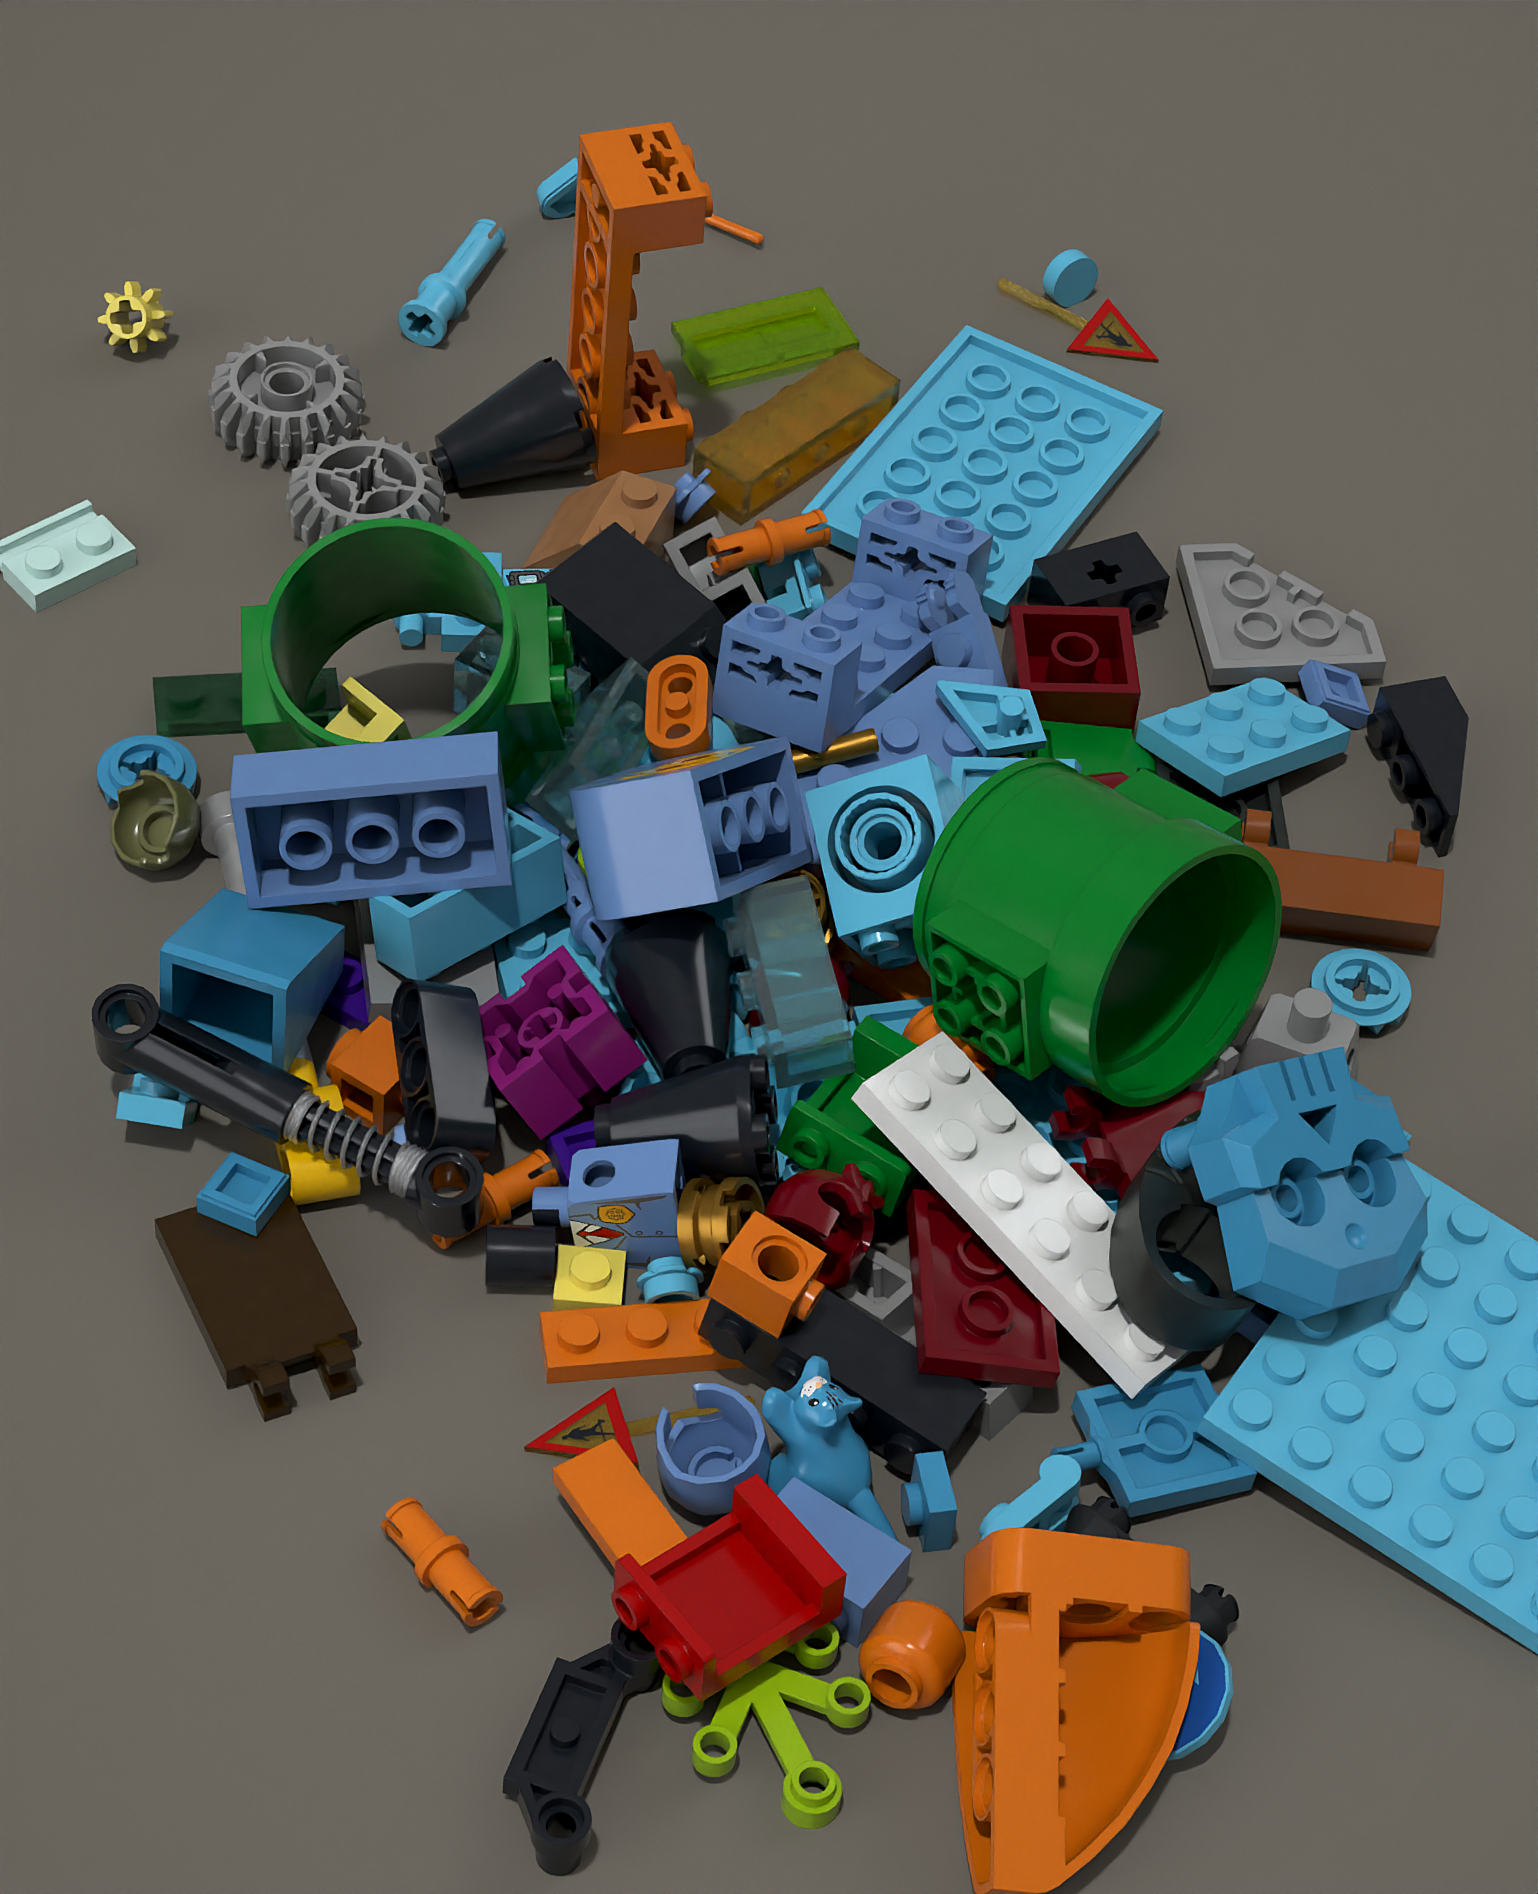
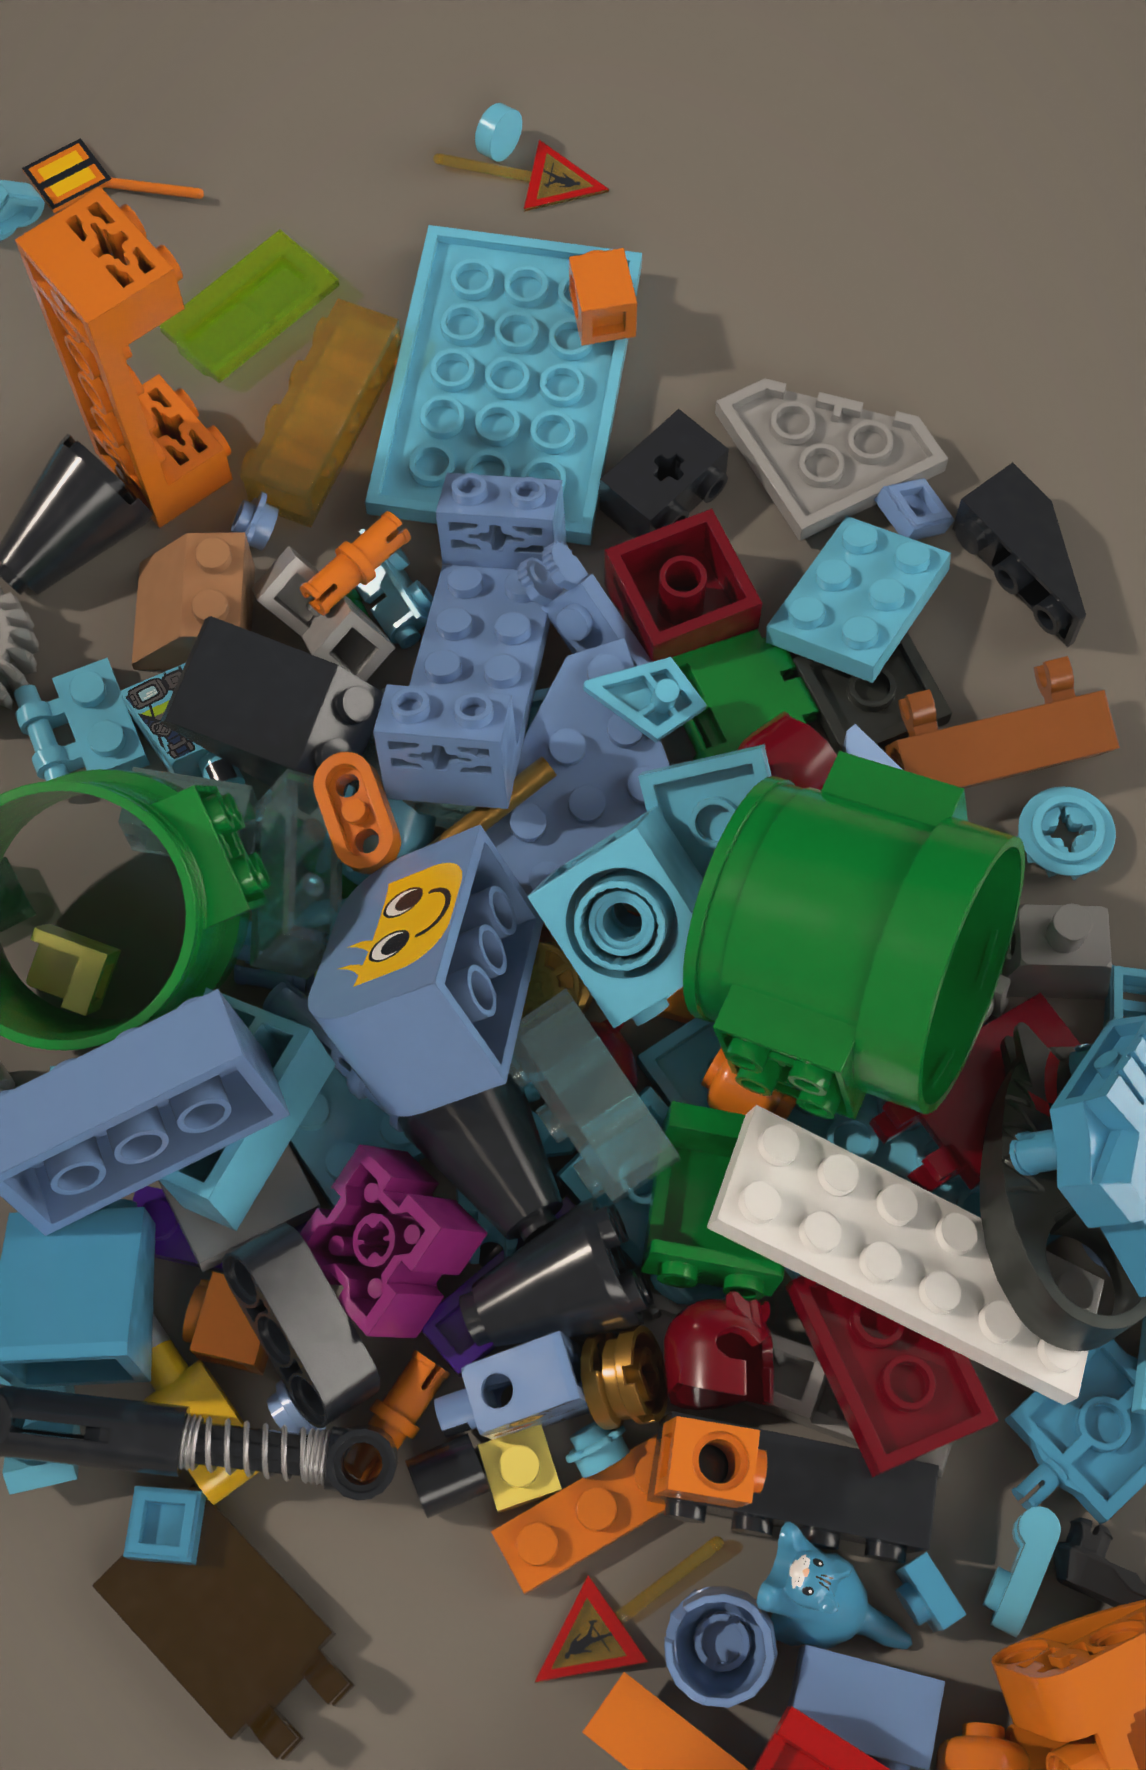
camera: 15 degrees left, 20 degrees up
(1104, 422) = (602, 296): none -> orange brick

